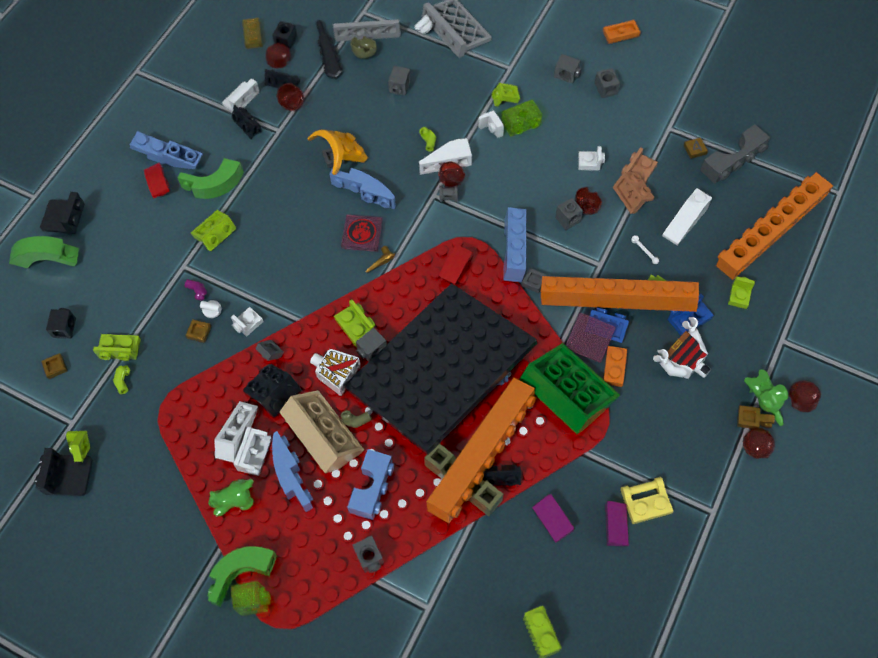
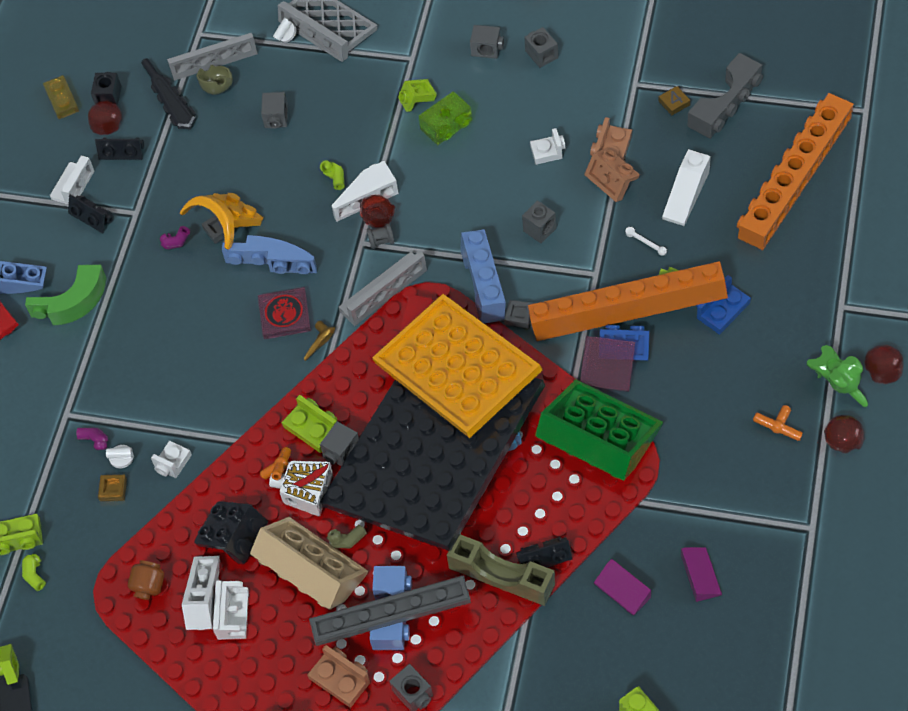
camera: 10 degrees left, 5 degrees down
(198, 410) = (146, 579): none -> dark orange head
(214, 230) = (92, 358): lime bracket -> none
(234, 495) = (225, 666): bright green animal -> none
(269, 350) = (212, 484): dark grey plate -> none
(285, 467) = (281, 620): medium blue slope -> none
(290, 97) = (139, 166): clear red hair -> none
(300, 159) = (177, 241): none -> magenta arm
(317, 528) = (340, 676): none -> nougat bracket
(319, 351) = (277, 468): none -> orange piece
(369, 488) = (389, 610): none -> dark grey tile
(439, 233) = (383, 287): none -> light grey fence
(475, 310) = (457, 365): none -> light orange plate
(480, 451) = (513, 529): orange brick -> none
(491, 121) = (410, 132): white bracket -> none
(588, 201) = (559, 199): clear red hair -> none
(615, 366) = (647, 390): orange plate -> none
(647, 507) = (732, 543): light yellow plate -> none
(685, 354) = (728, 353): torso -> none
(708, 422) = (778, 426): none -> orange piece
(741, 292) = (776, 261): lime bracket -> none
(751, 418) = (827, 406): pearl gold plate -> none

